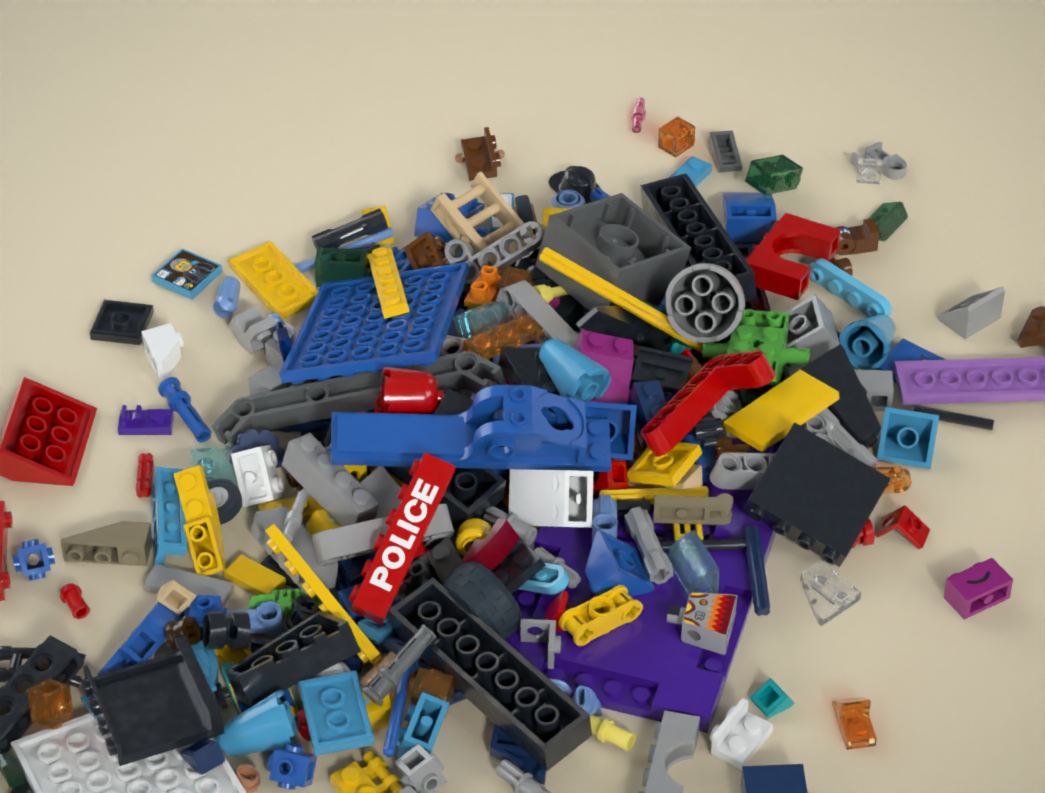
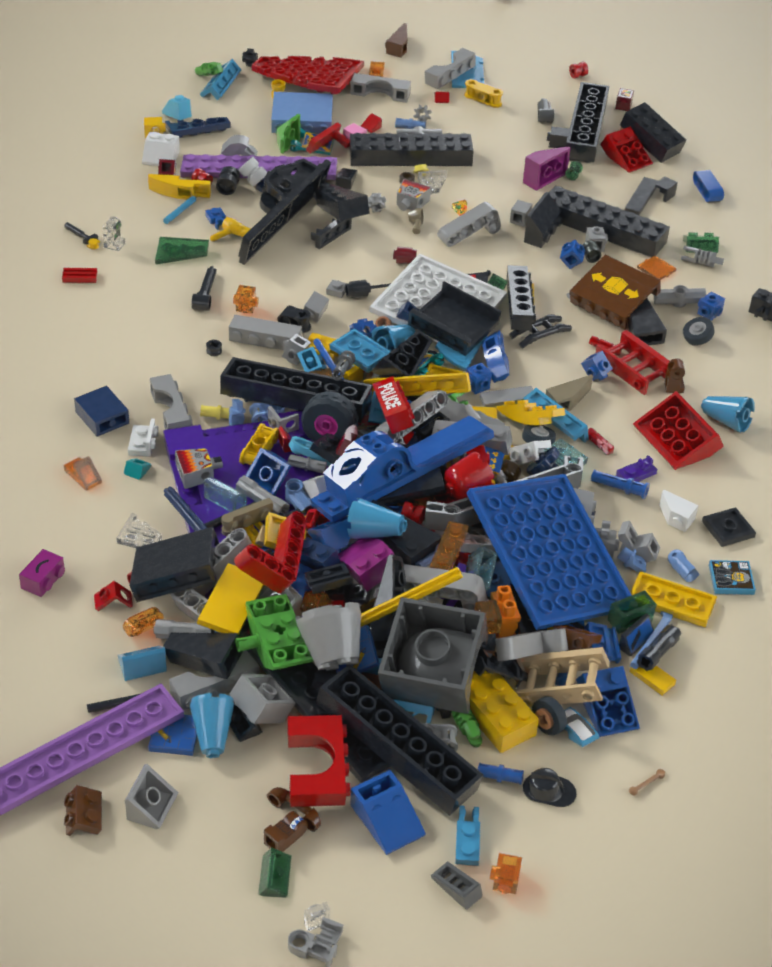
camera: 145 degrees right, 0 degrees up
(50, 704) = (500, 297): clear orange brick -> none
(72, 597) = (560, 366): red pin -> none
(175, 596) = (498, 365): tan slope -> none
(186, 626) = (476, 357): dark brown wheel -> none
(215, 630) = (456, 362): black wheel -> none
(284, 342) = (595, 514): clear blue tile -> none
(388, 282) = (578, 590): yellow plate -> none
(480, 155) = (641, 771): reddish brown bracket -> none
(567, 199) = (530, 749): medium blue cone -> none
(638, 115) = (561, 891): clear pink bar -> none
(773, 174) = (391, 858): clear green brick -> none
(849, 288) = (253, 773): medium azure plate -> none

